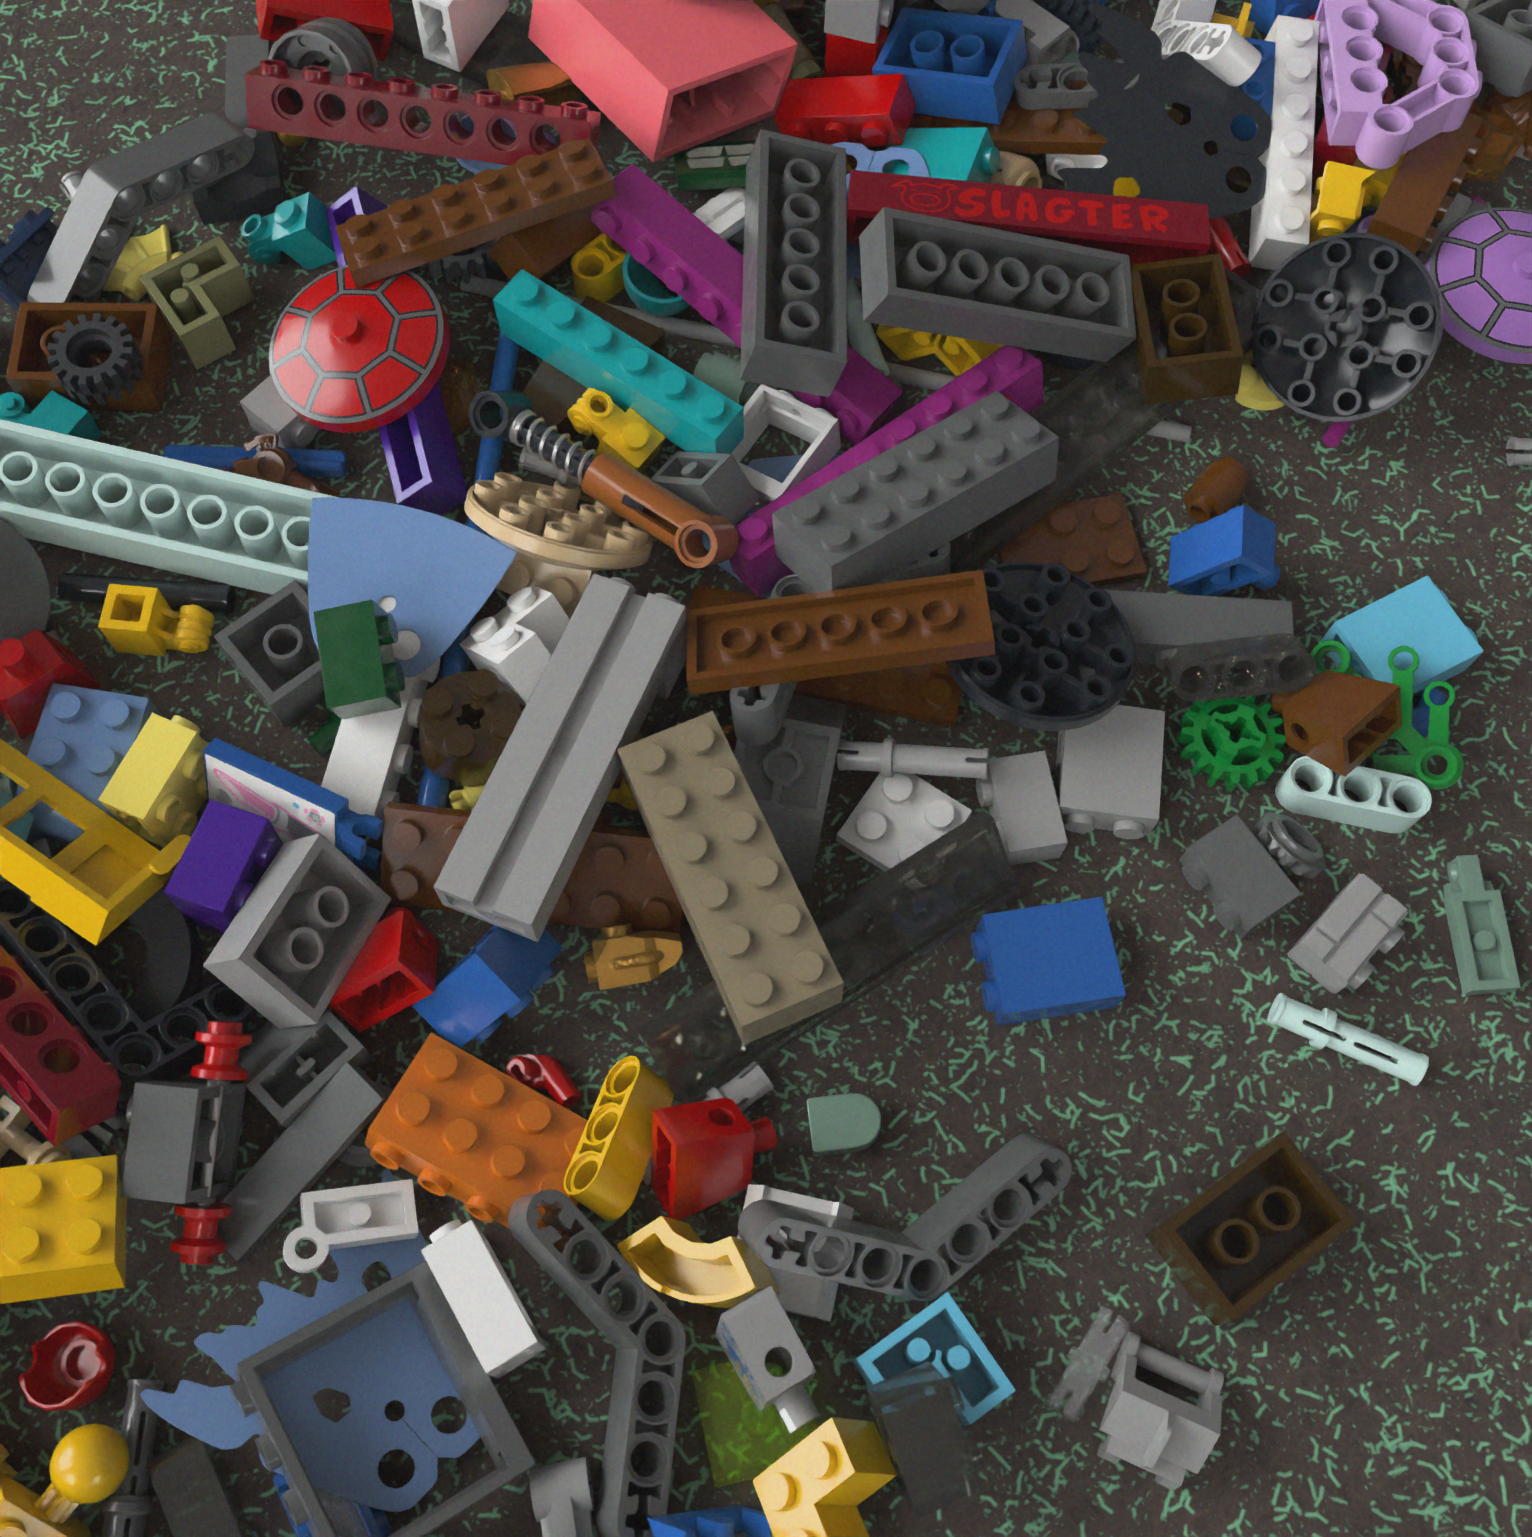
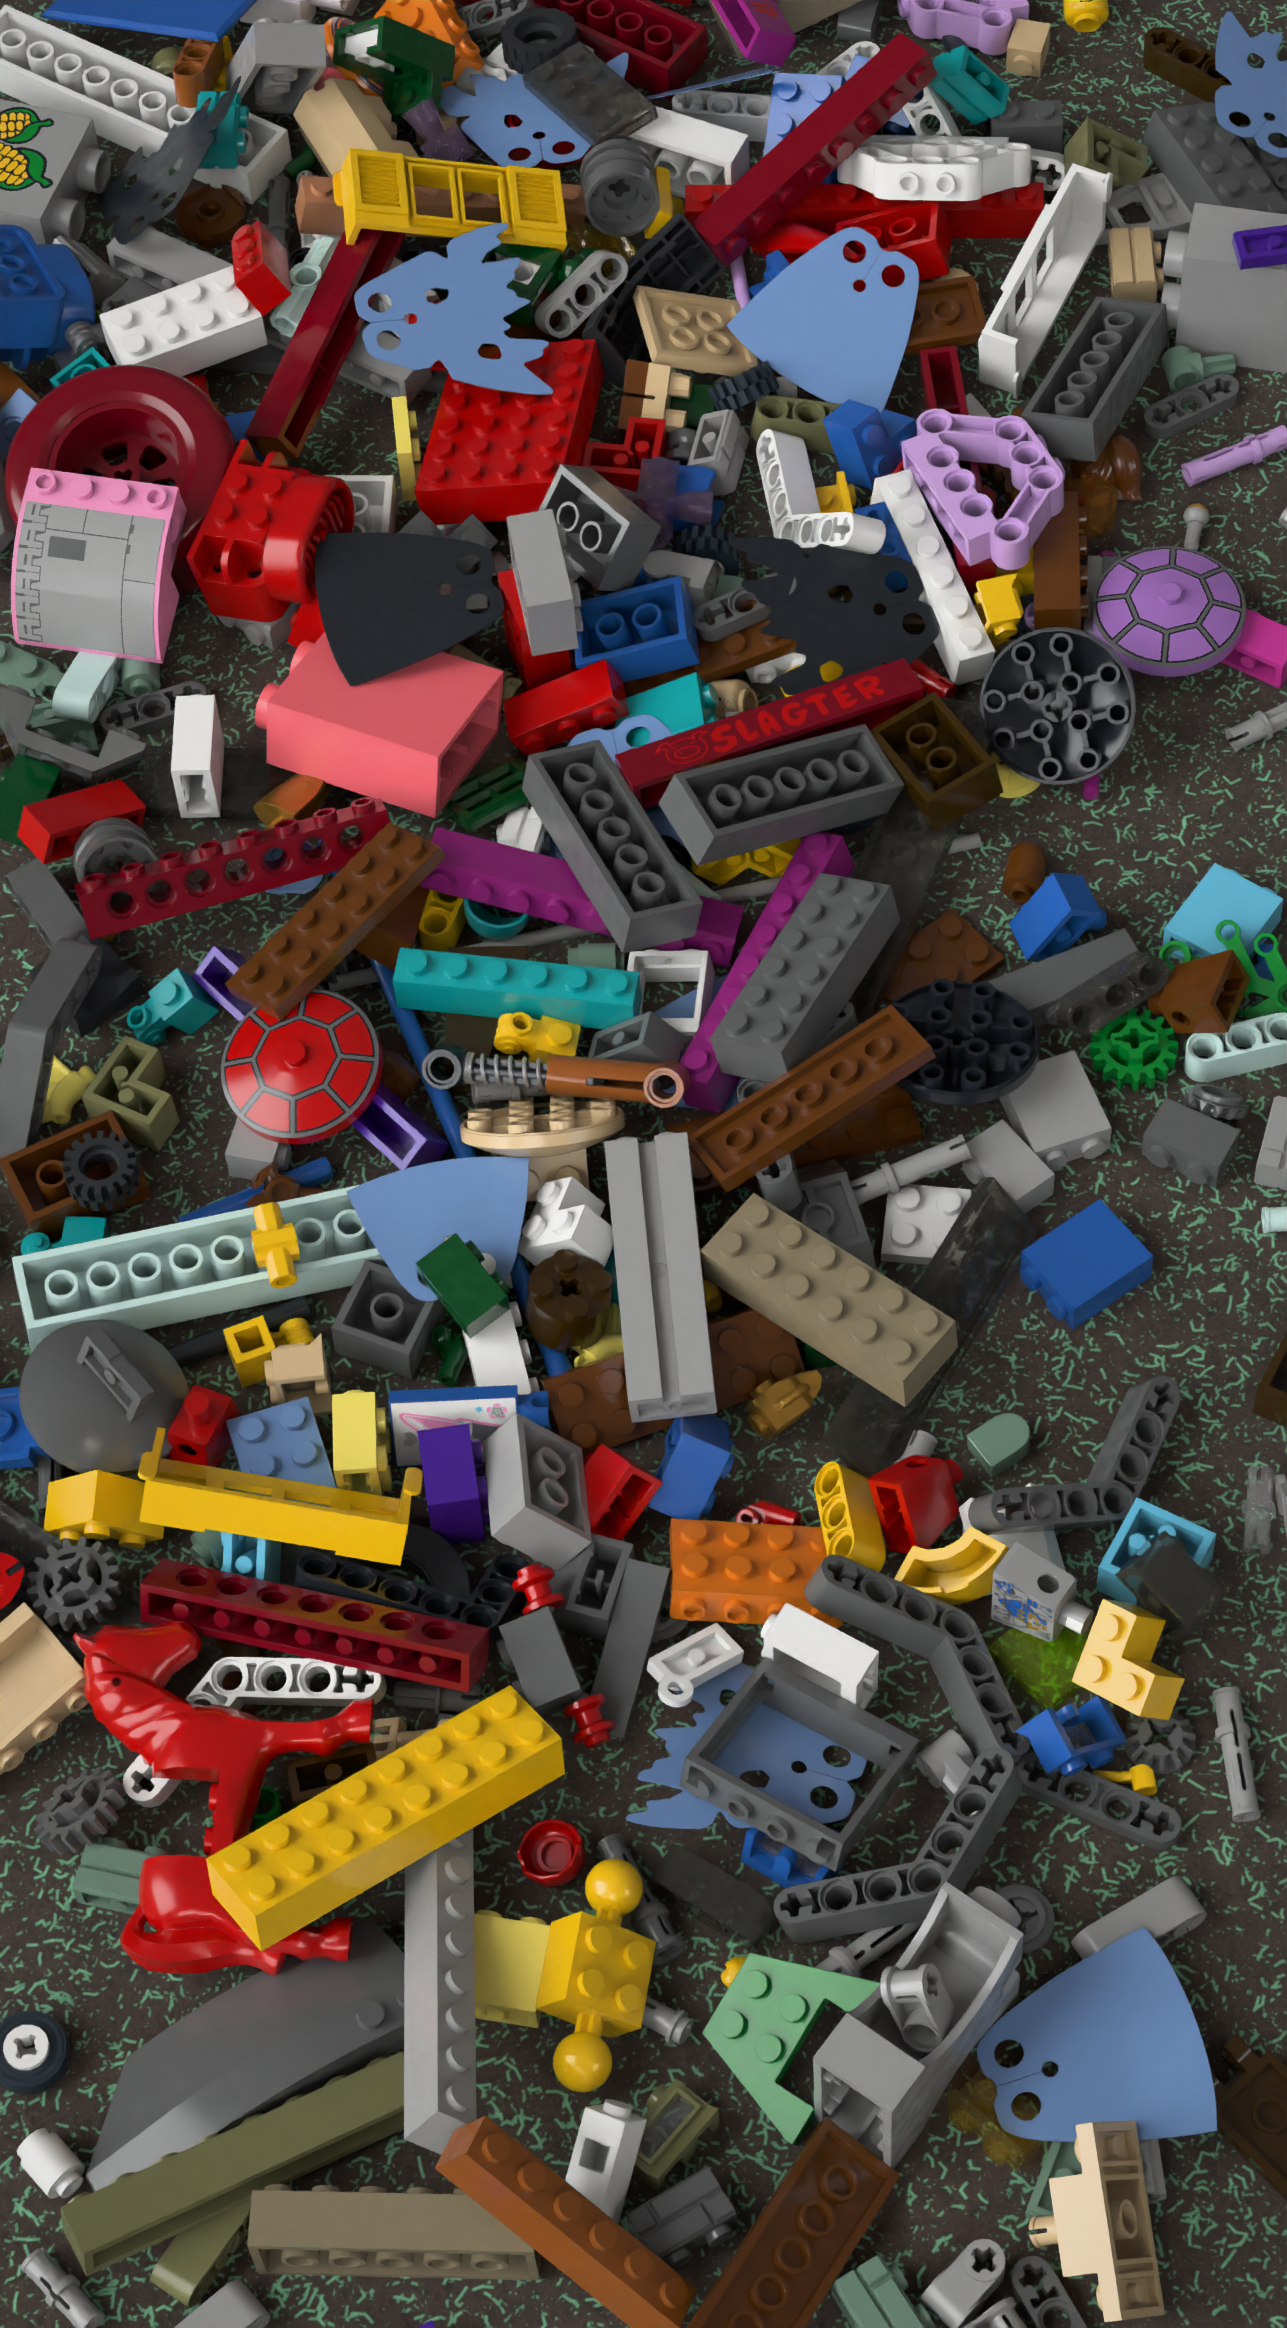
camera: 20 degrees left, 10 degrees down
(160, 671) = (298, 1373): none -> tan window
(200, 520) = (275, 1245): none -> yellow axle

